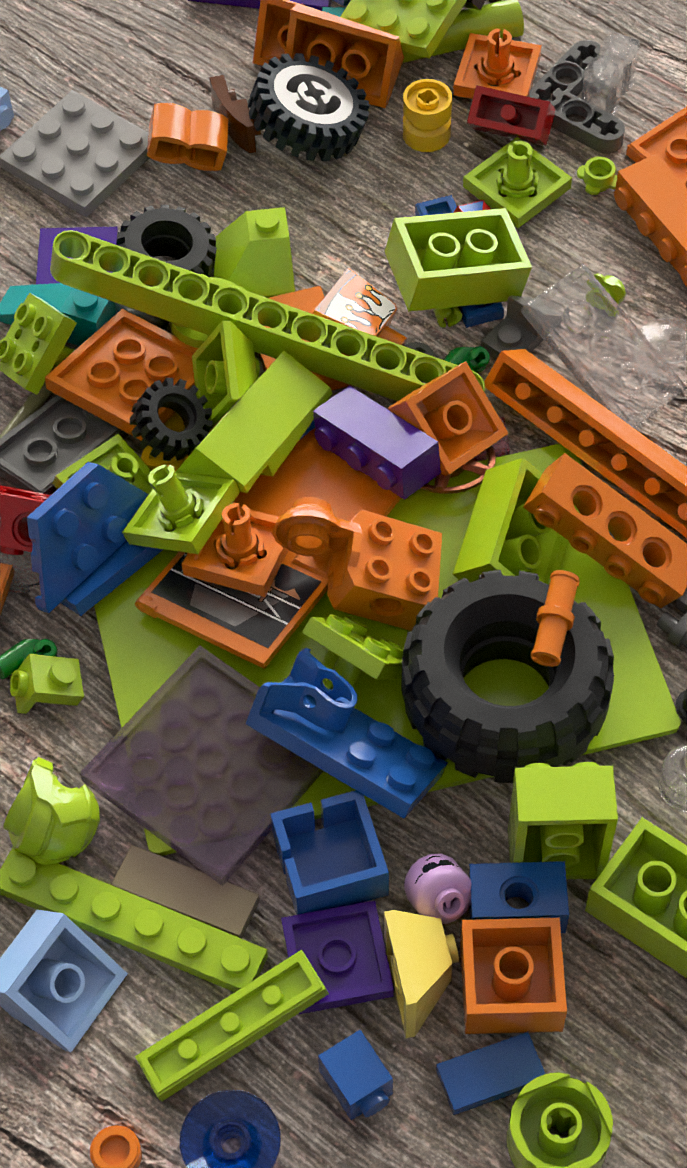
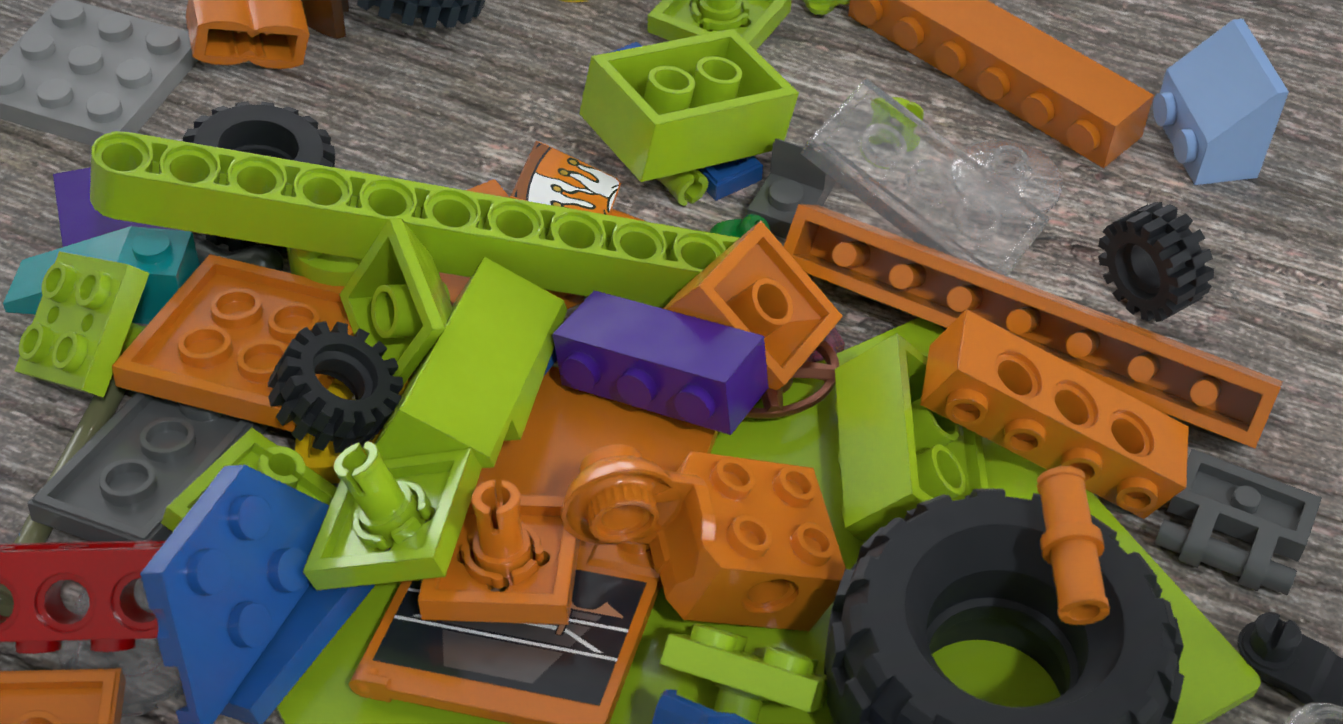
camera: 20 degrees left, 10 degrees down
(257, 253) = (394, 137): lime slope -> none

